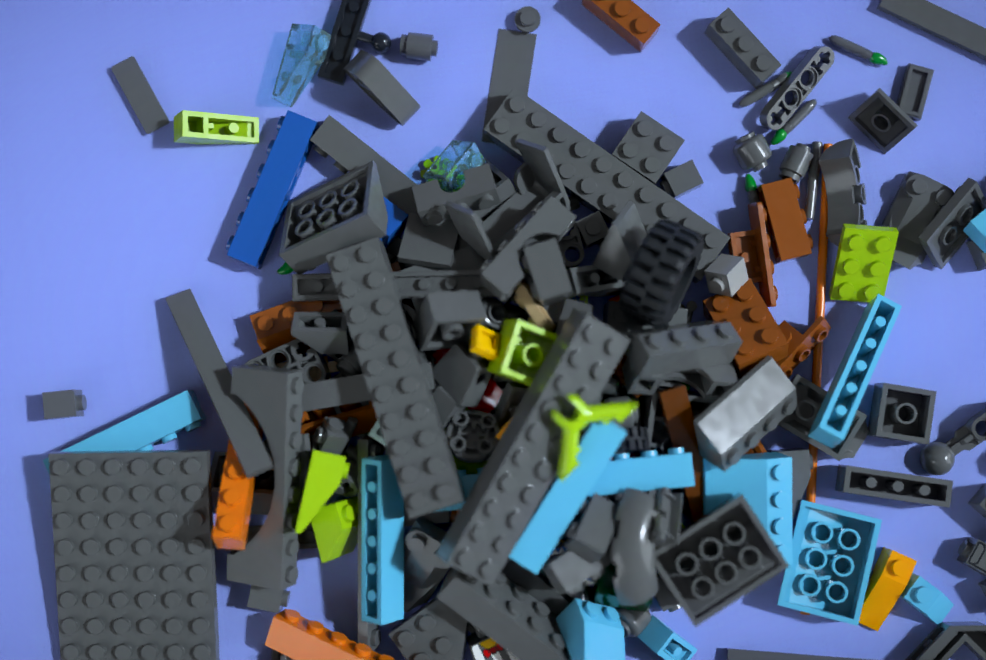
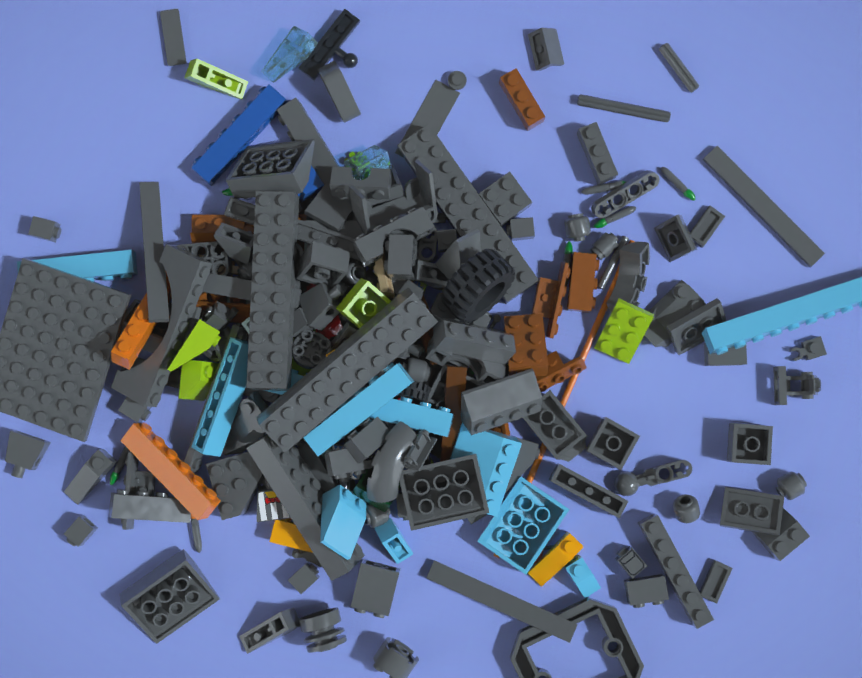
camera: 25 degrees right, 0 degrees up
(418, 46) = (375, 72): dark grey brick -> none
(485, 342) = (340, 288): yellow tile -> none
(581, 416) = (376, 364): lime piece -> none
(726, 275) = (526, 304): light grey brick -> none
(854, 371) = (588, 401): medium azure brick -> none

